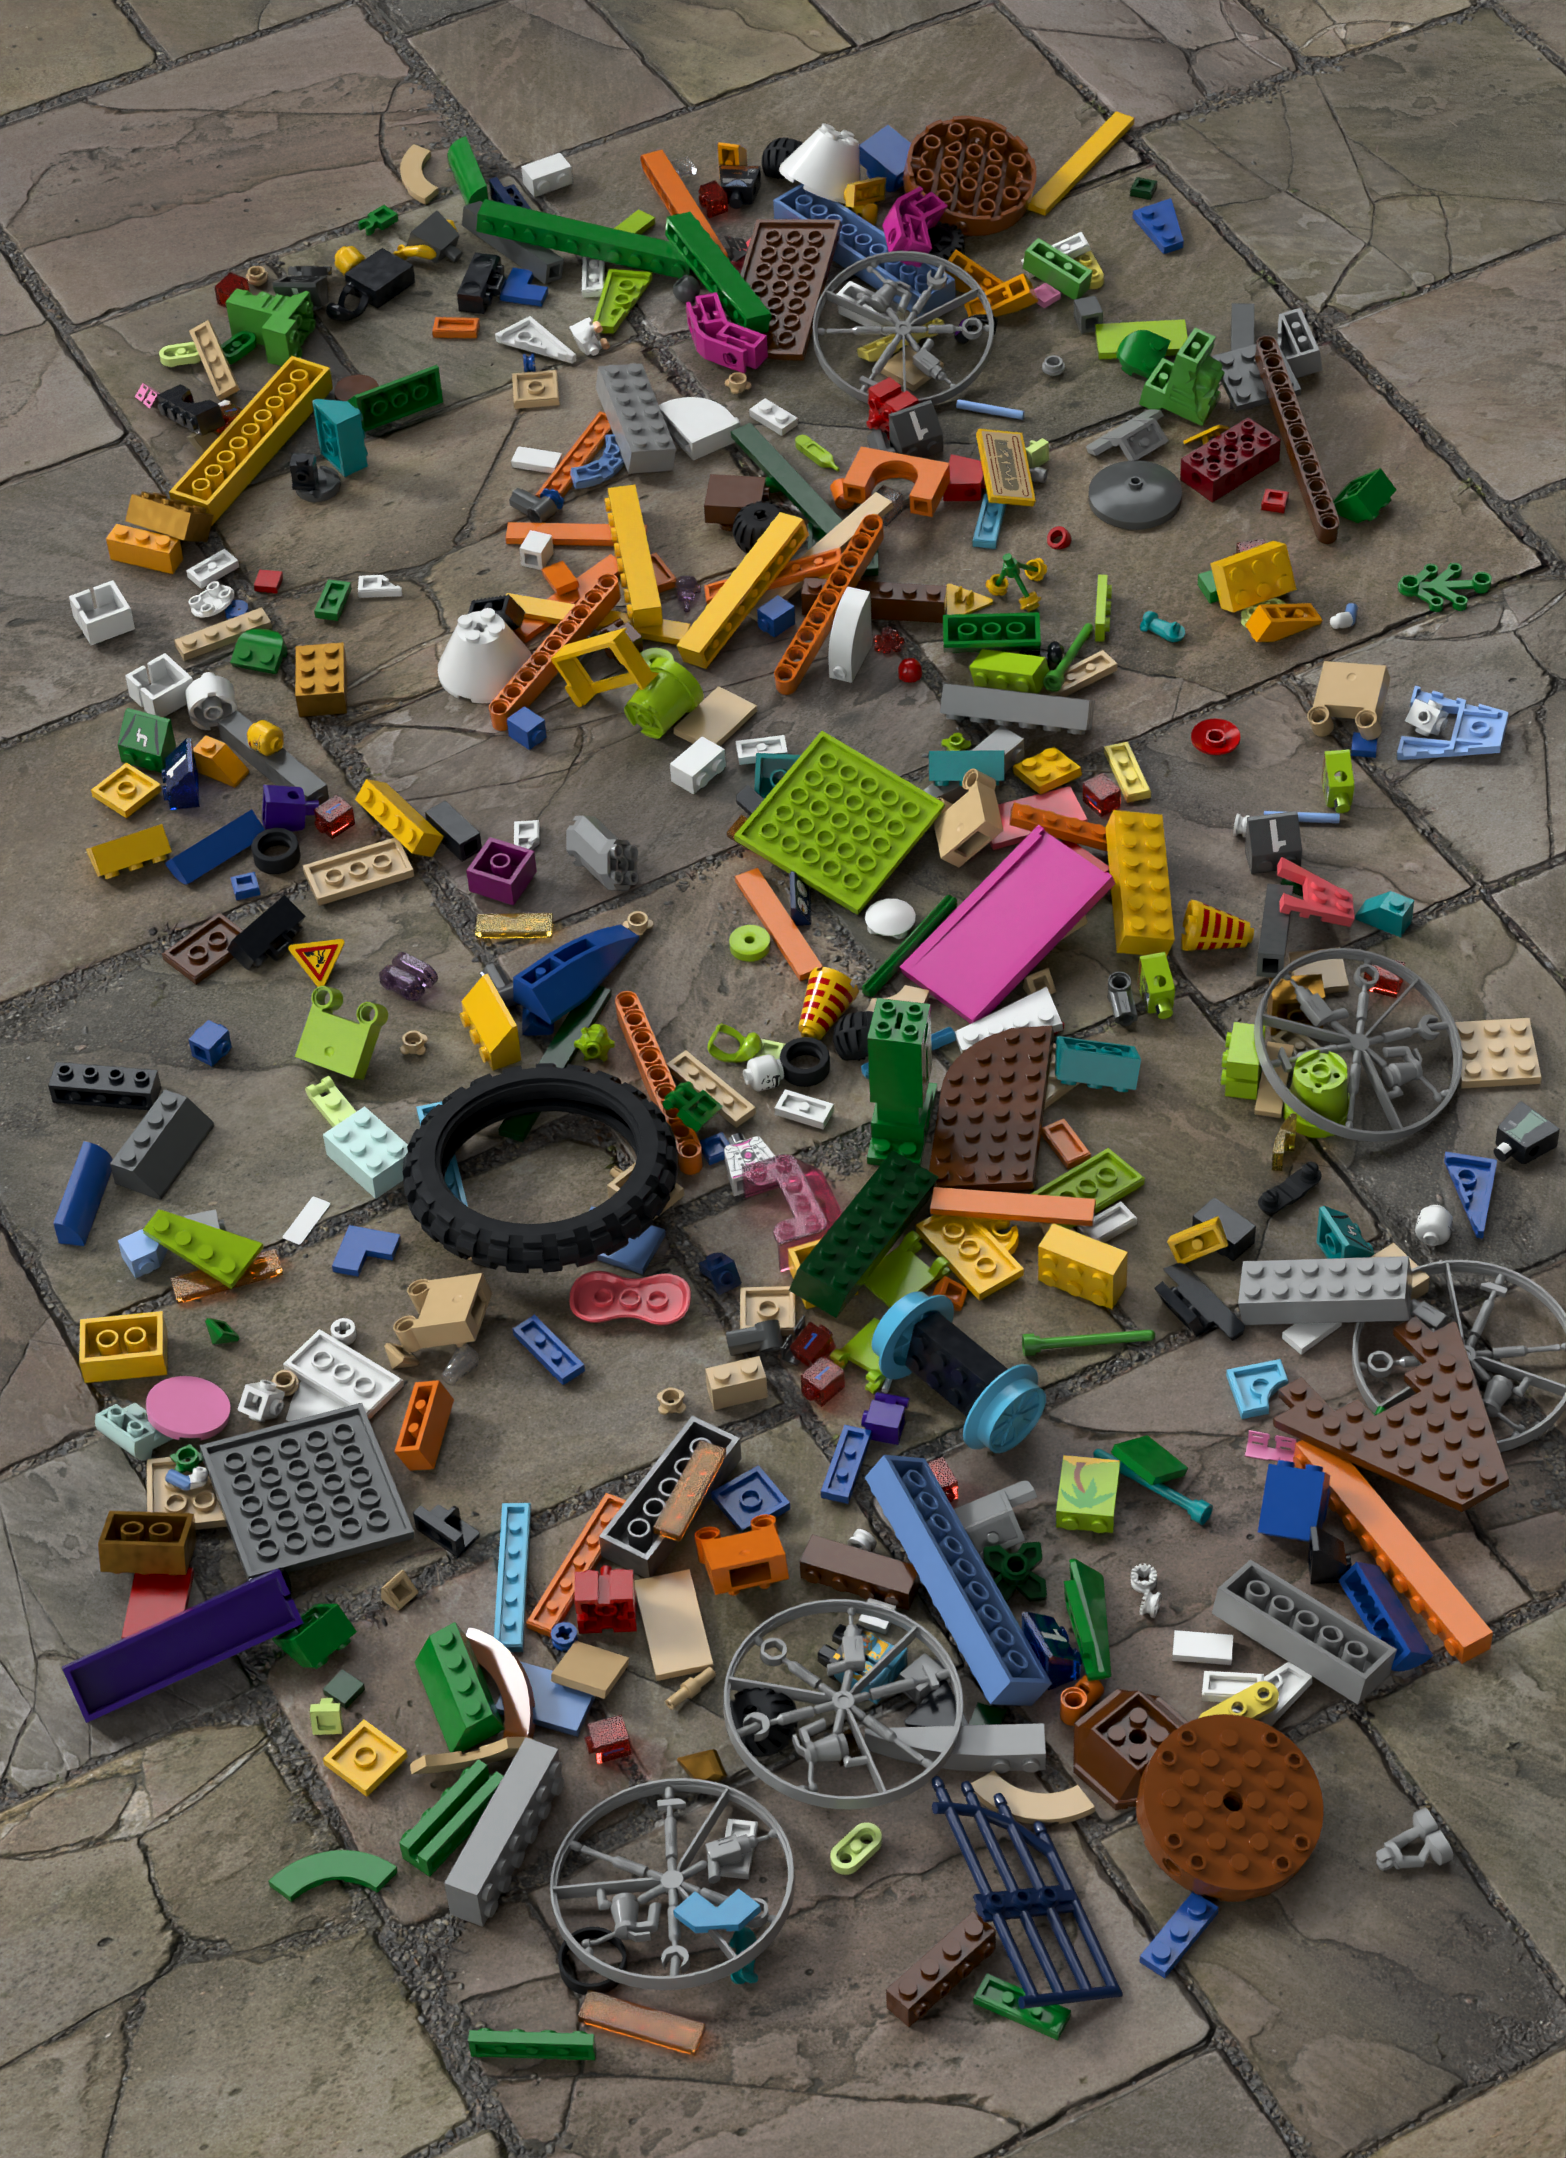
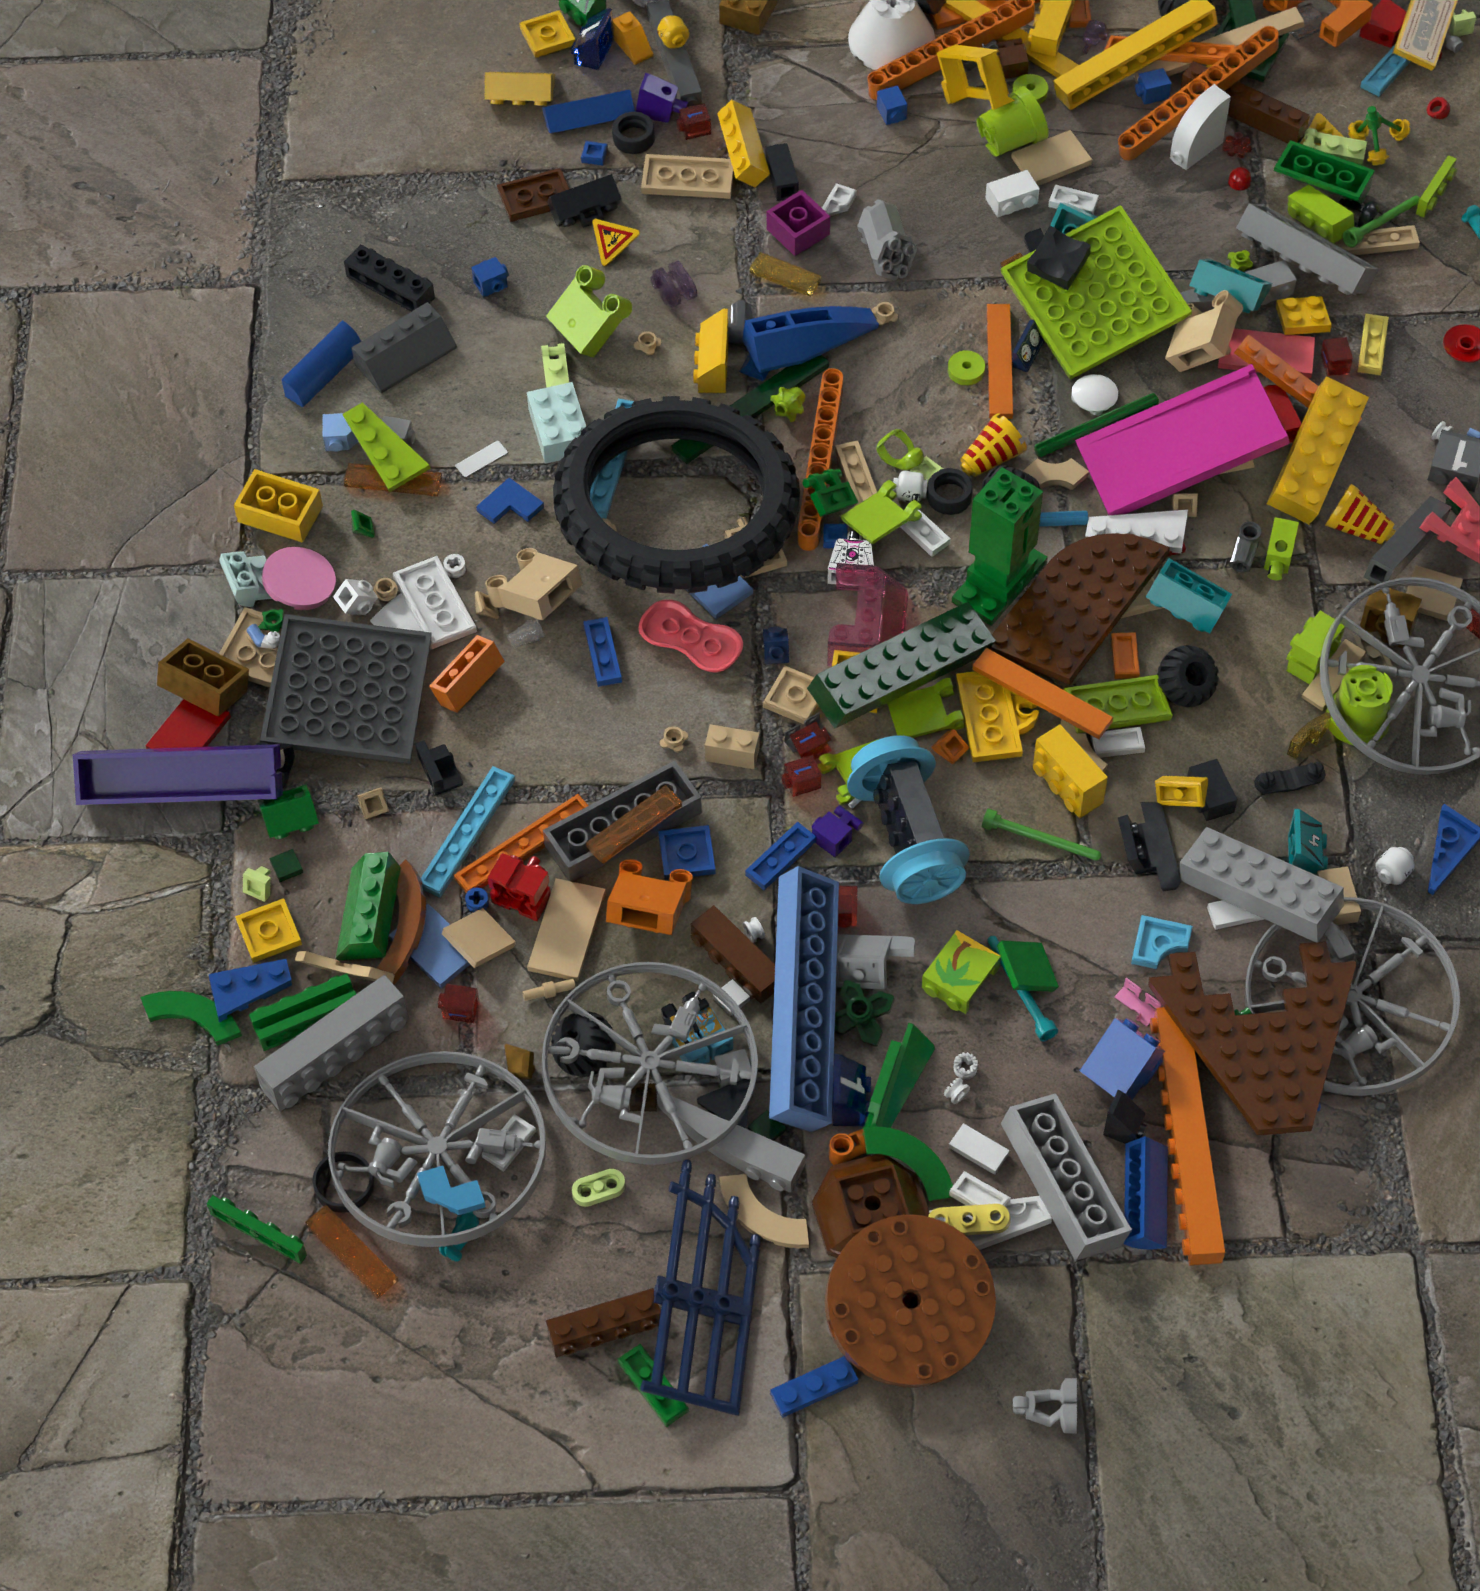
camera: 25 degrees right, 10 degrees up
(374, 1820) = (241, 986): none -> blue wing
(751, 1110) = (880, 515): none -> lime flag
(762, 1337) = (774, 716): dark grey piece -> none
(790, 802) = (1058, 258): none -> black brick
(984, 605) = (1339, 146): none -> yellowish green plate
(1139, 1135) = (1199, 669): none -> black wheel
(1149, 1675) = (914, 1154): none -> green tile

